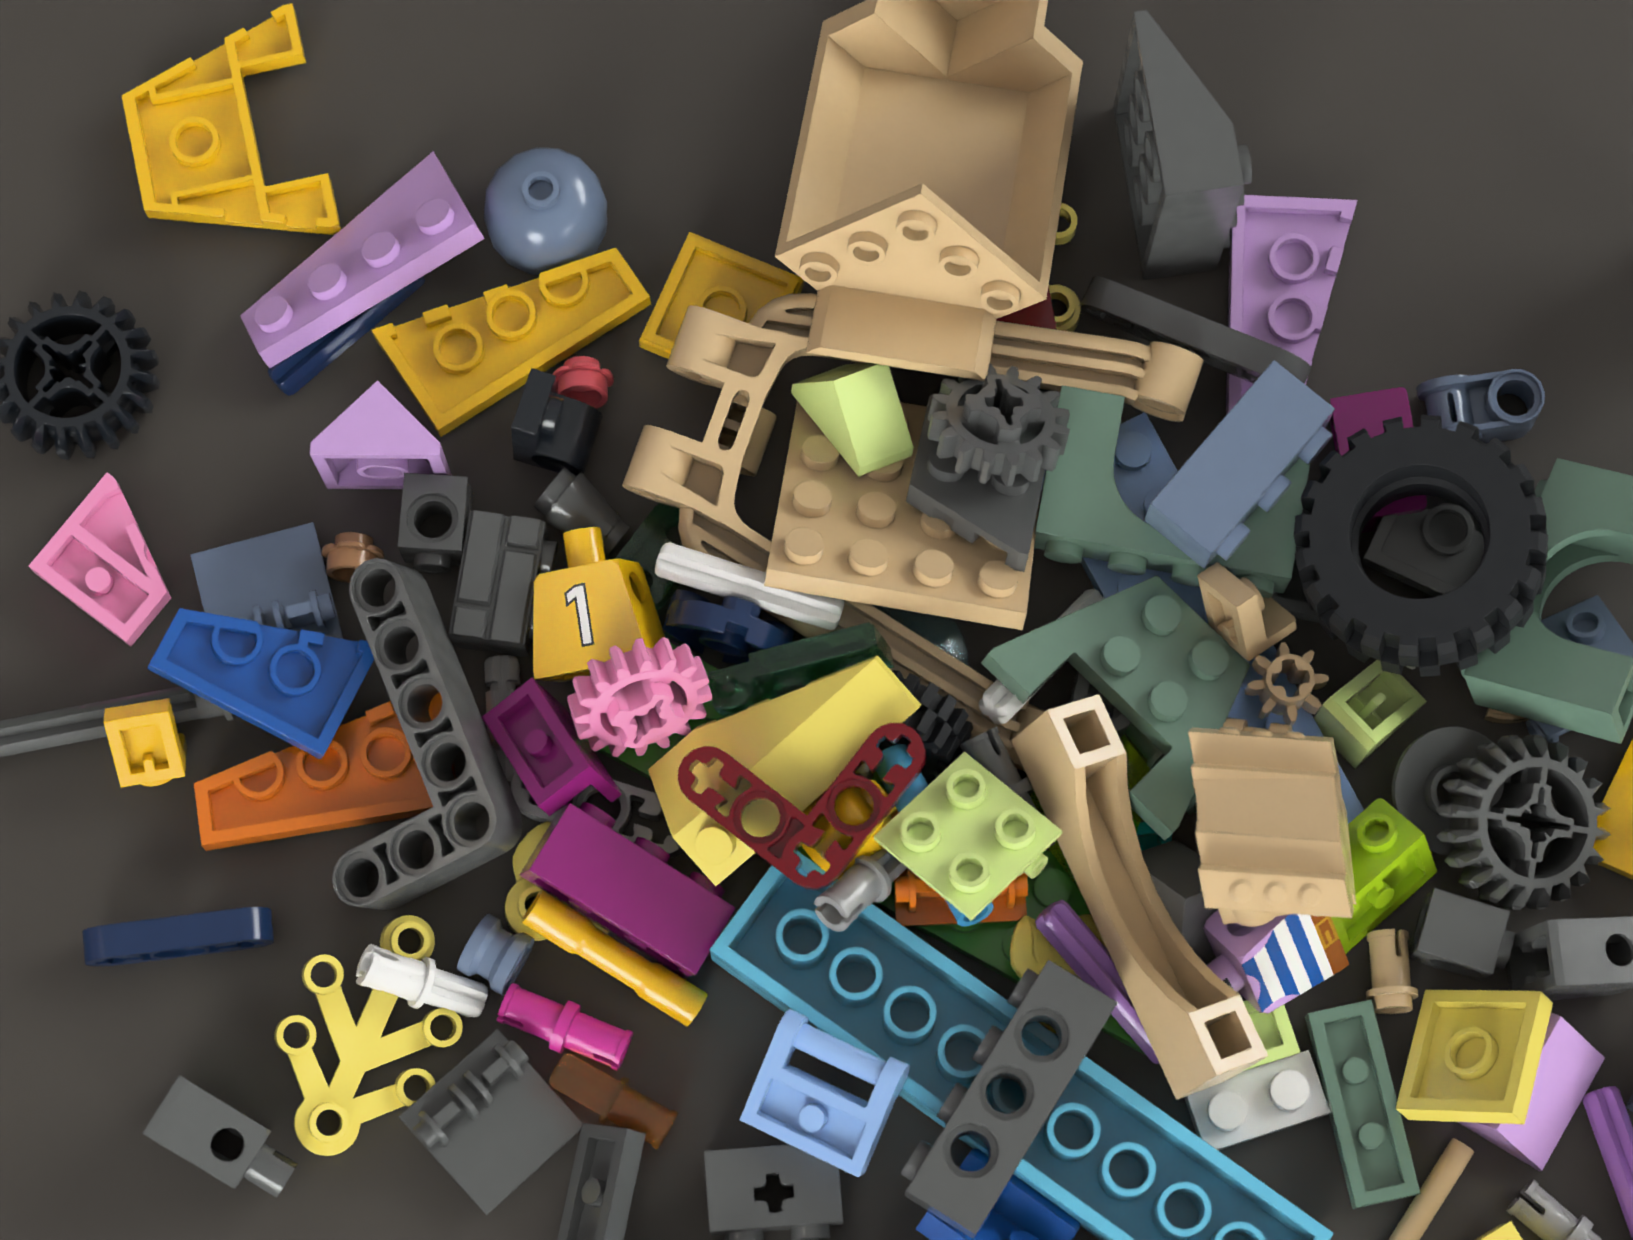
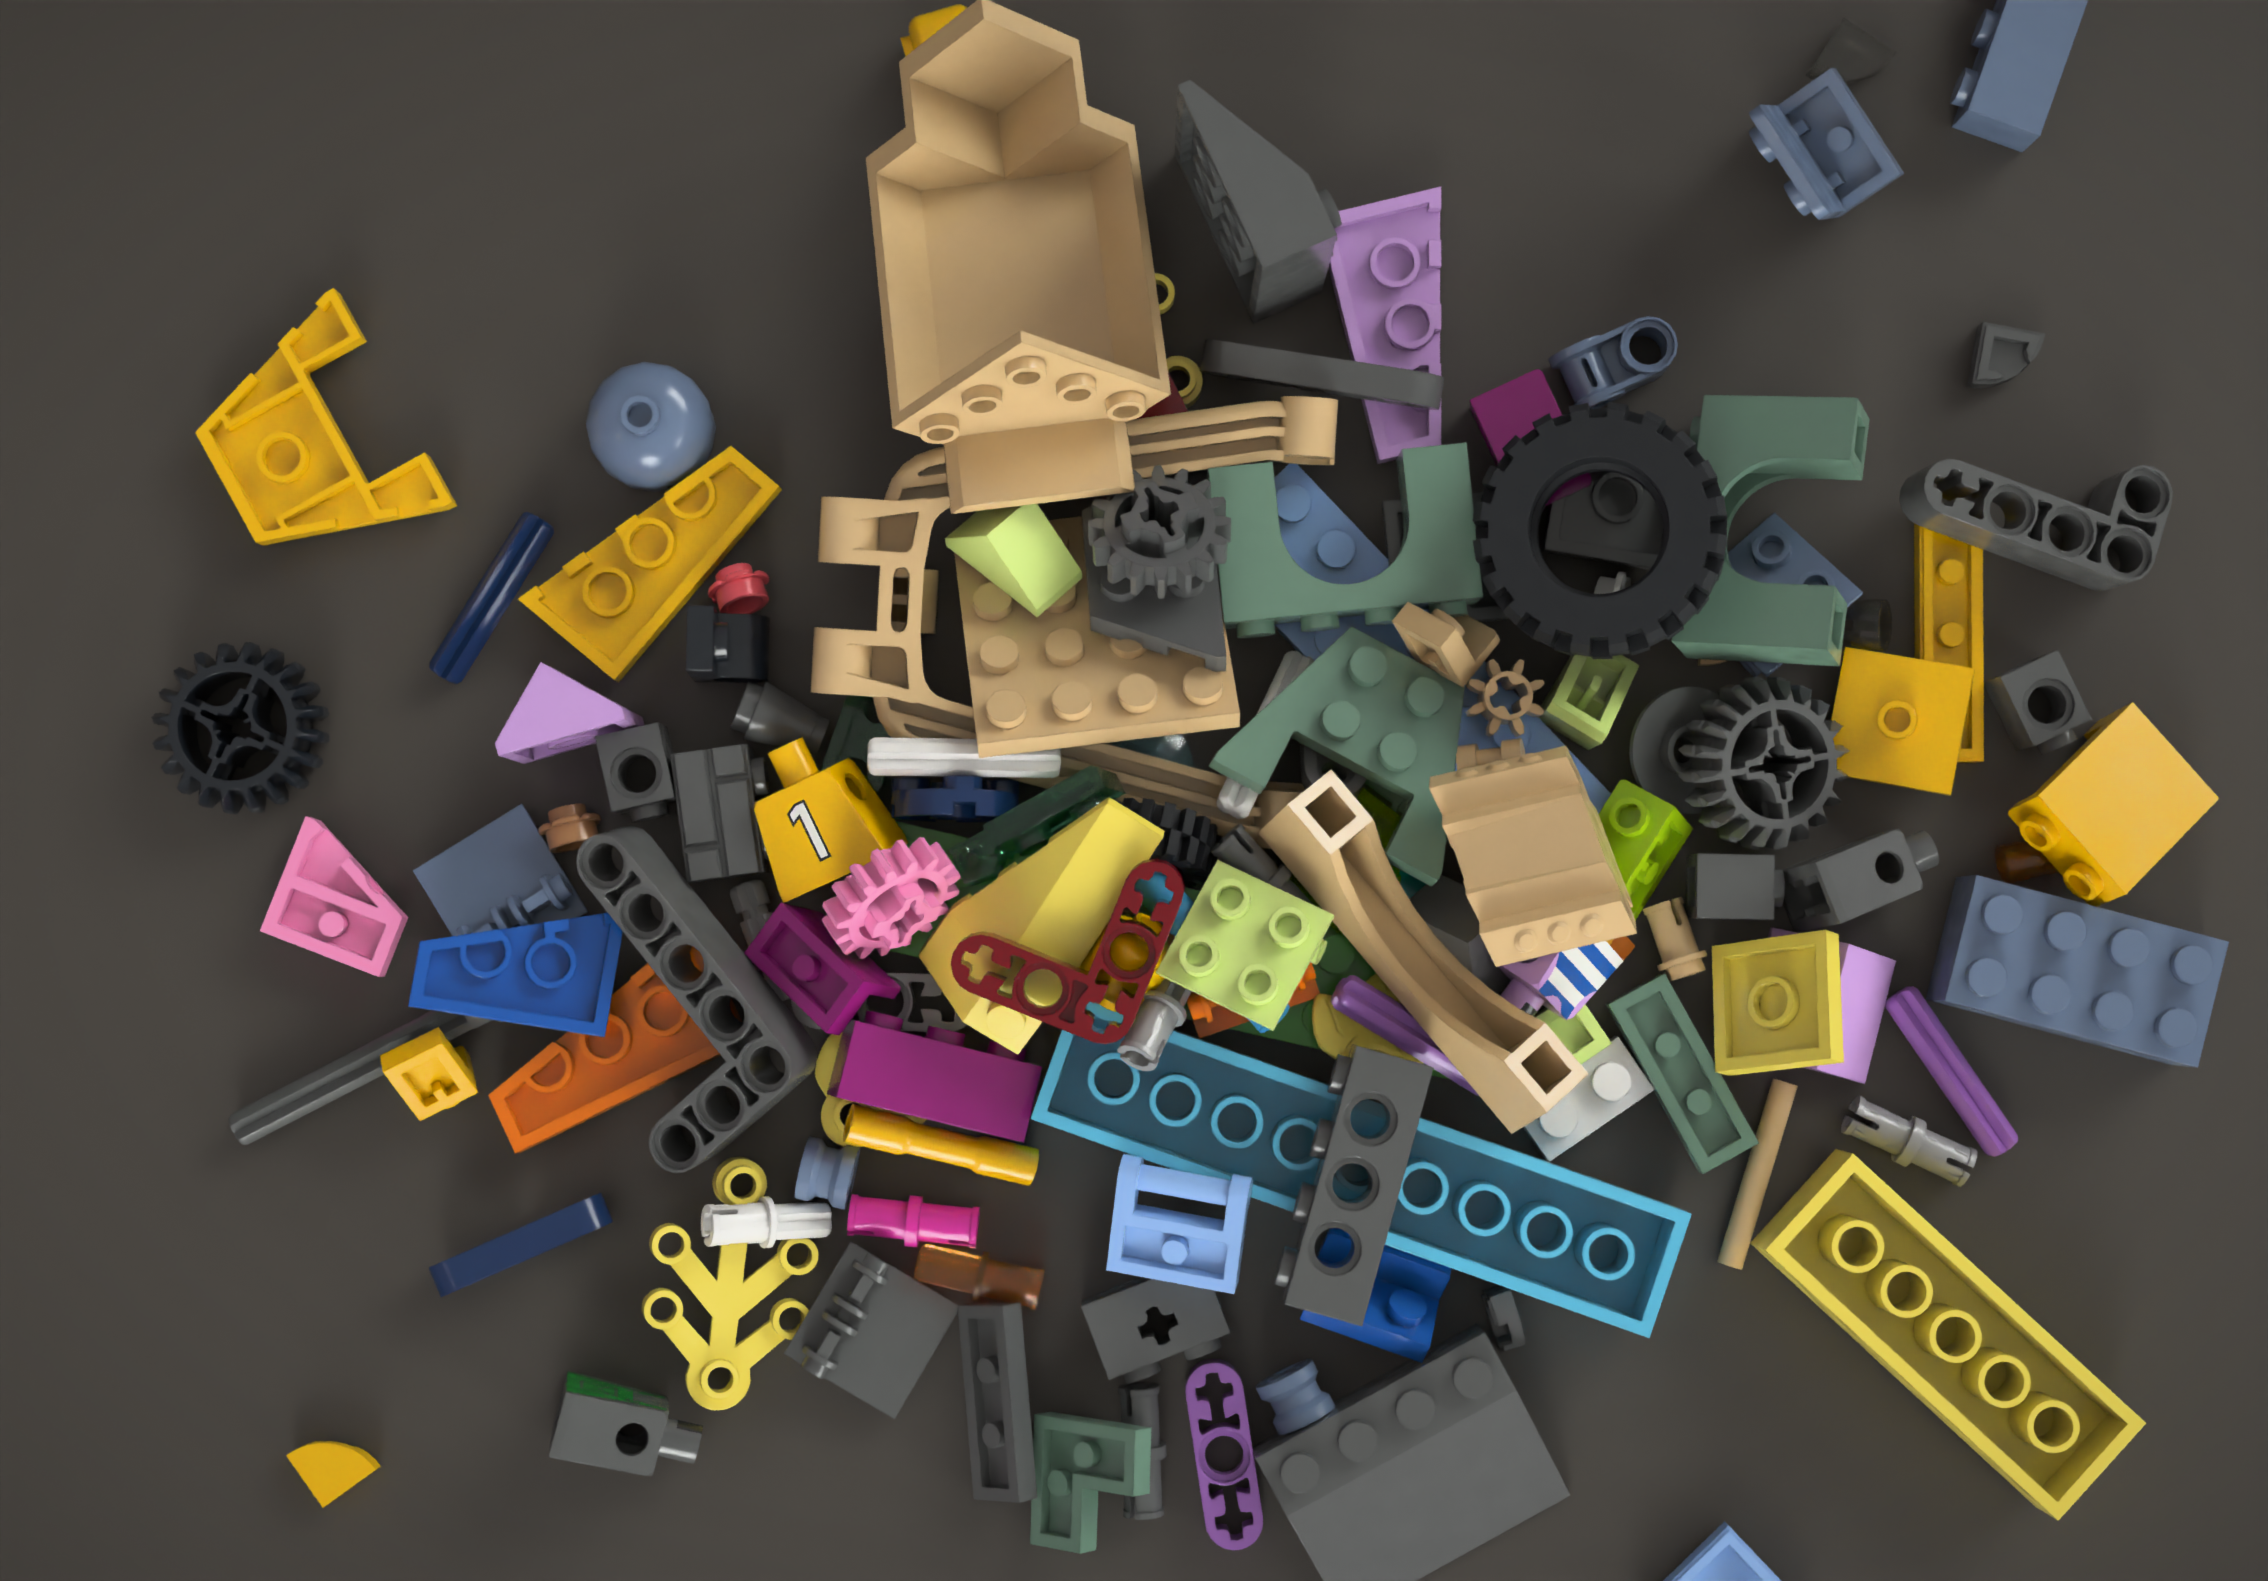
camera: 15 degrees left, 10 degrees up
(375, 255) = (497, 523): lavender wing -> none
(717, 280) = (840, 459): yellow plate -> none
(1241, 466) = (1407, 504): sand blue brick -> none

